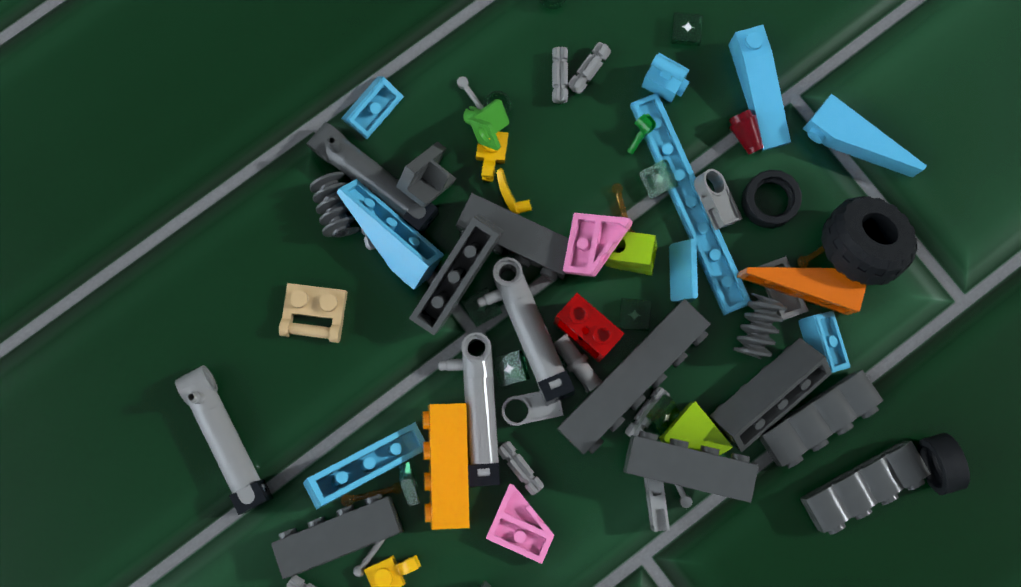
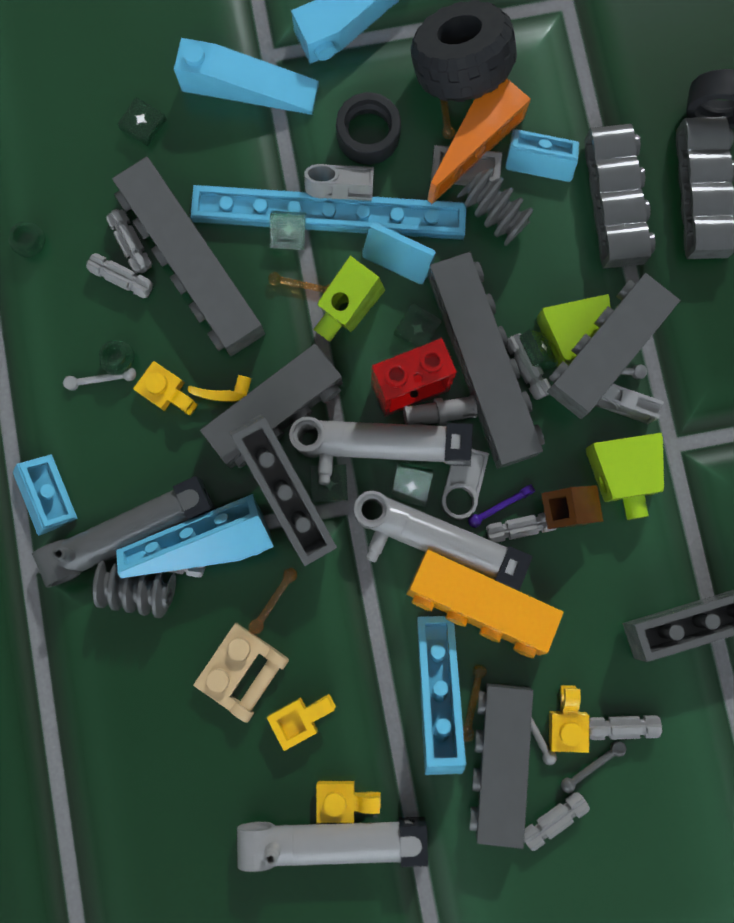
camera: 65 degrees left, 0 degrees up
(254, 430) = (338, 802): none -> yellow plate
(297, 370) = (296, 721): none -> yellow plate
(352, 307) = (257, 626): none -> clear orange hinge
(408, 484) = (483, 655): tile -> none
(424, 177) = (155, 472): dark grey panel -> none
(487, 122) = (131, 376): bright green bracket -> none
(509, 430) = (475, 520): none -> dark purple hinge
(520, 527) = (585, 558): bright pink wing -> none
(552, 498) = (572, 507): none -> reddish brown brick
(592, 242) = (322, 325): bright pink wing -> none
(598, 118) = (189, 257): none -> dark grey brick
(603, 530) = (629, 470): none -> lime torso
(646, 125) = (223, 212): green hand -> none
(666, 78) = (184, 166): medium azure brick -> none
(747, 131) = (284, 116): dark red cone -> none
(771, 394) = (570, 229): dark grey brick -> none

